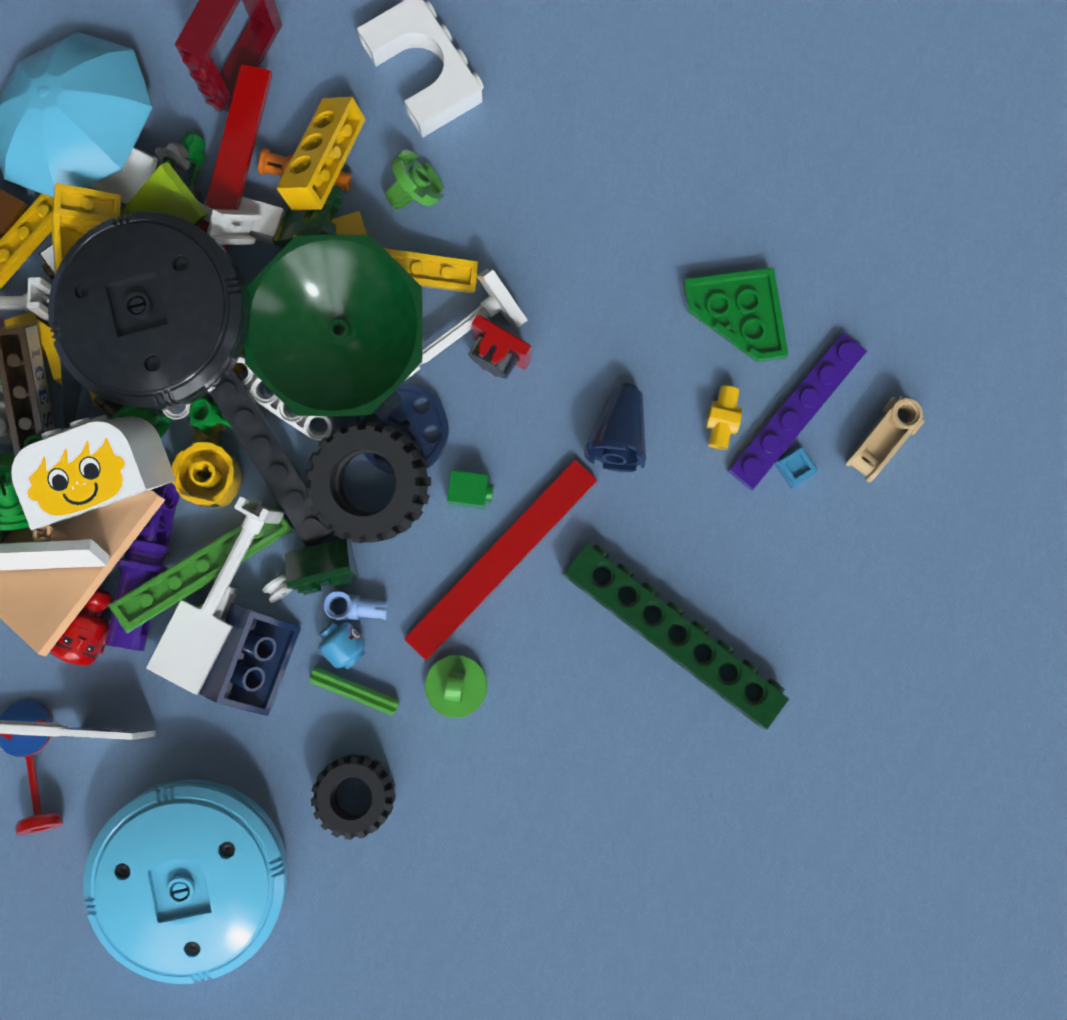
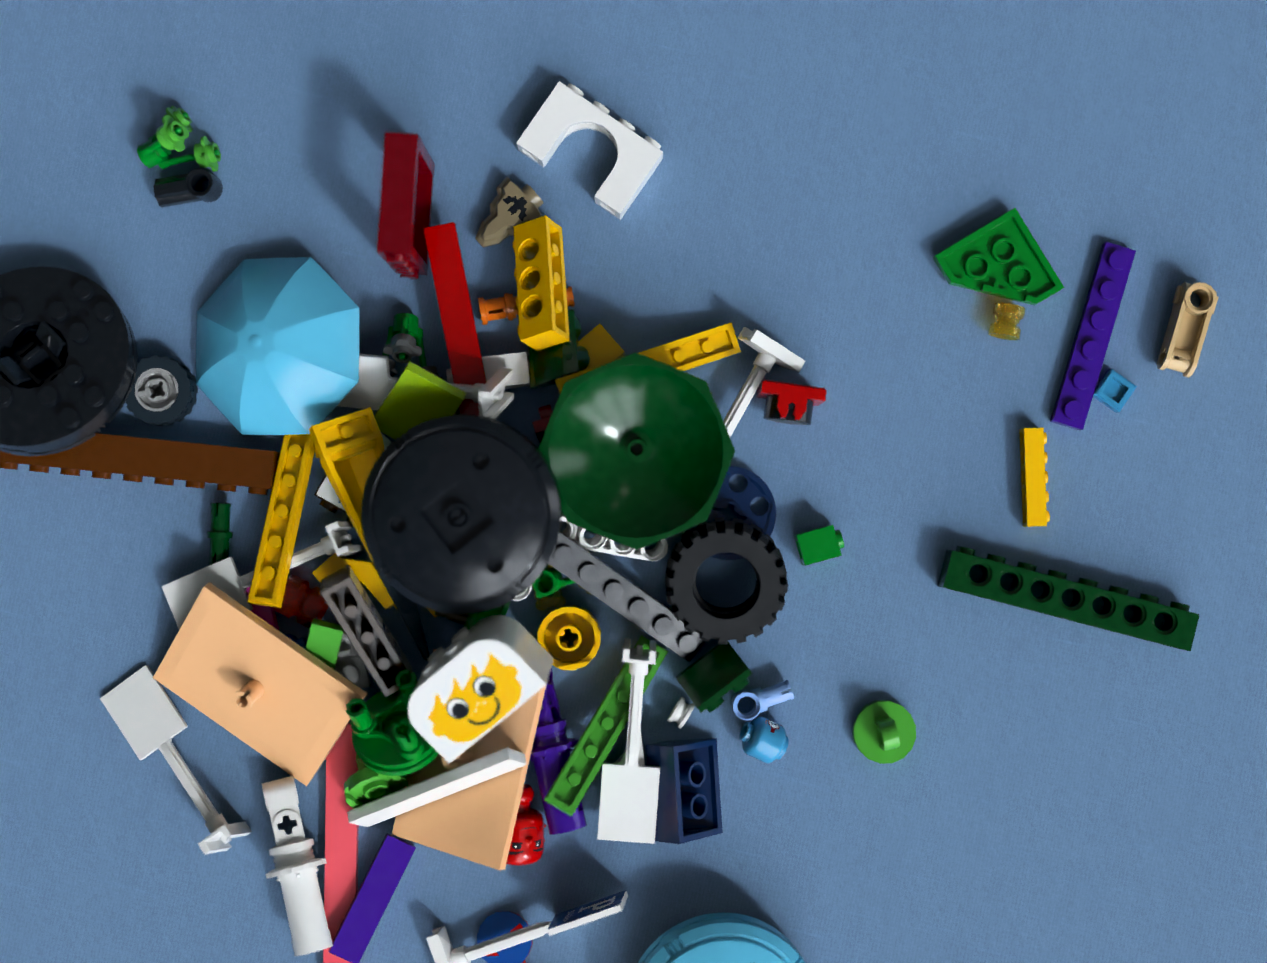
camera: 15 degrees left, 5 degrees up
(325, 83) = (508, 209): none -> dark tan rock
(333, 815) = (846, 897): black tyre -> none
(354, 691) = (792, 776): bright green axle -> none
(413, 182) = (639, 269): bright green tile -> none
(500, 560) = (874, 596): red tile -> none
(619, 432) = (937, 428): dark blue cone -> none
(691, 513) = (1034, 477): none -> yellow piece
(724, 417) = (1027, 373): yellow axle -> none
(725, 362) = (1007, 318): none -> clear yellow wheel

